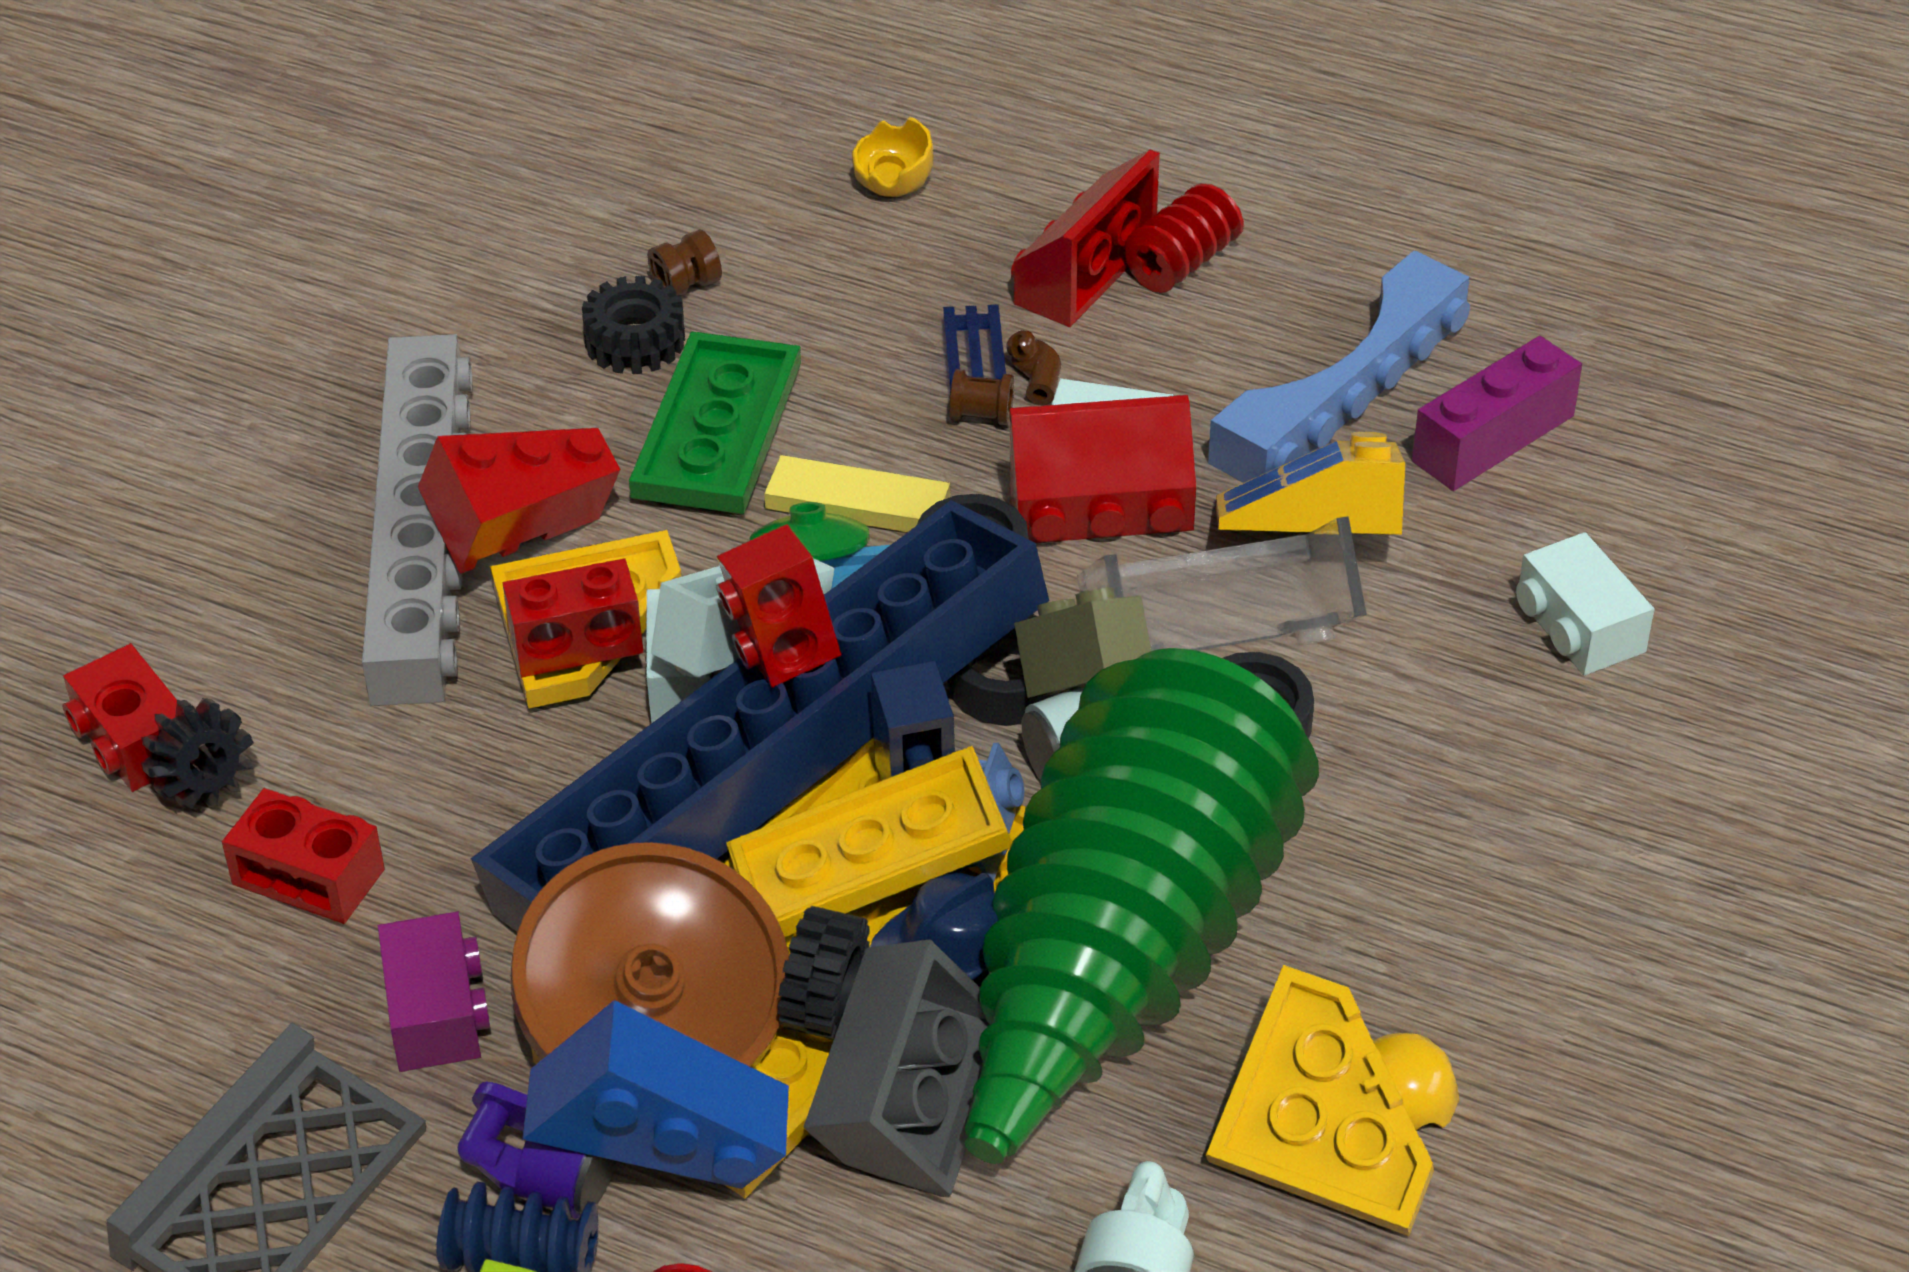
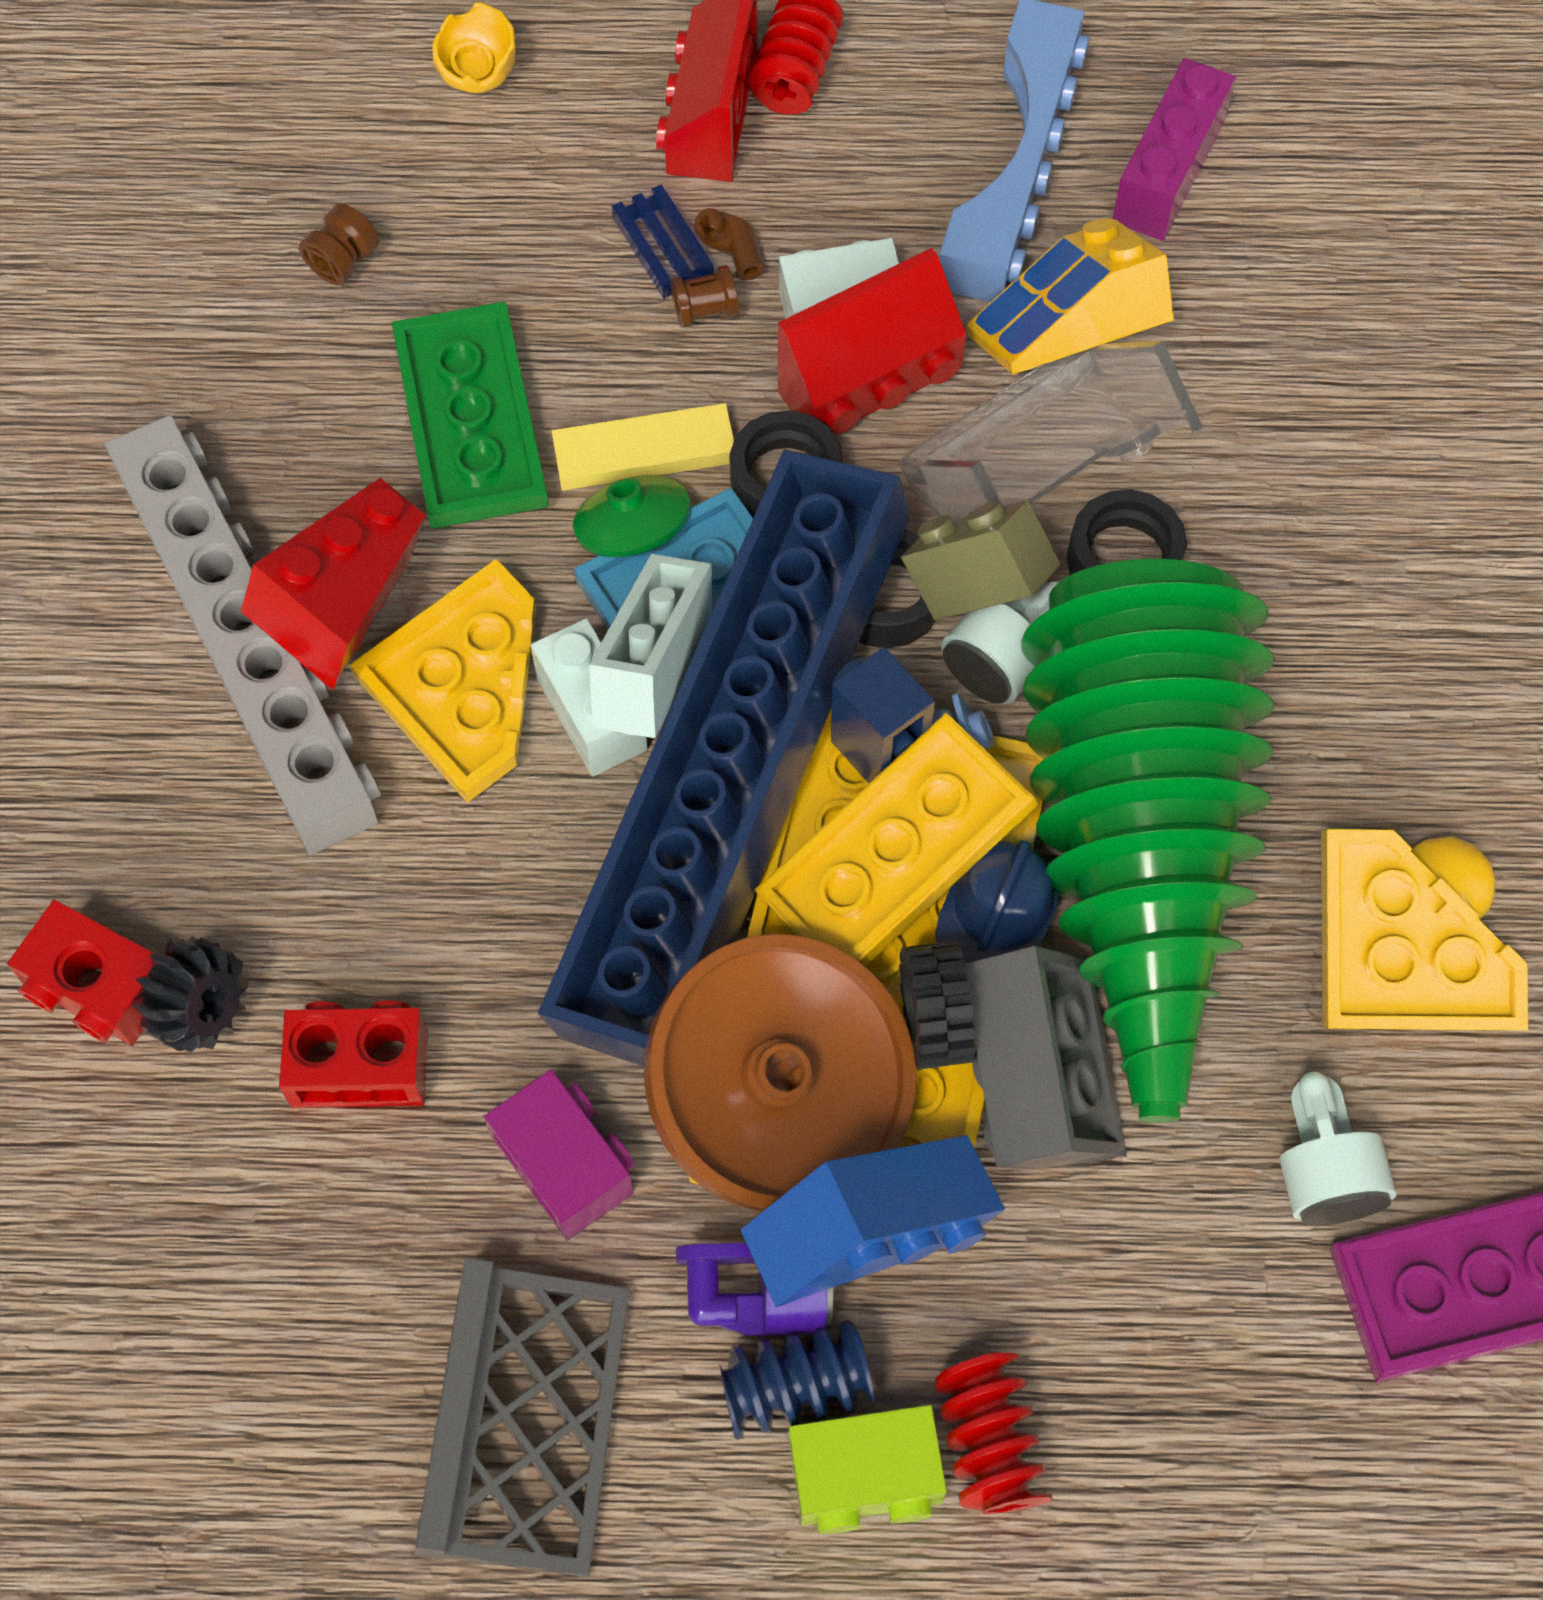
camera: 25 degrees left, 20 degrees up
(573, 617) = (478, 702): red brick -> none
(616, 341) = (320, 305): black tyre -> none
(777, 605) = (713, 646): red brick -> none
(1584, 603) = (1347, 327): light aqua brick -> none

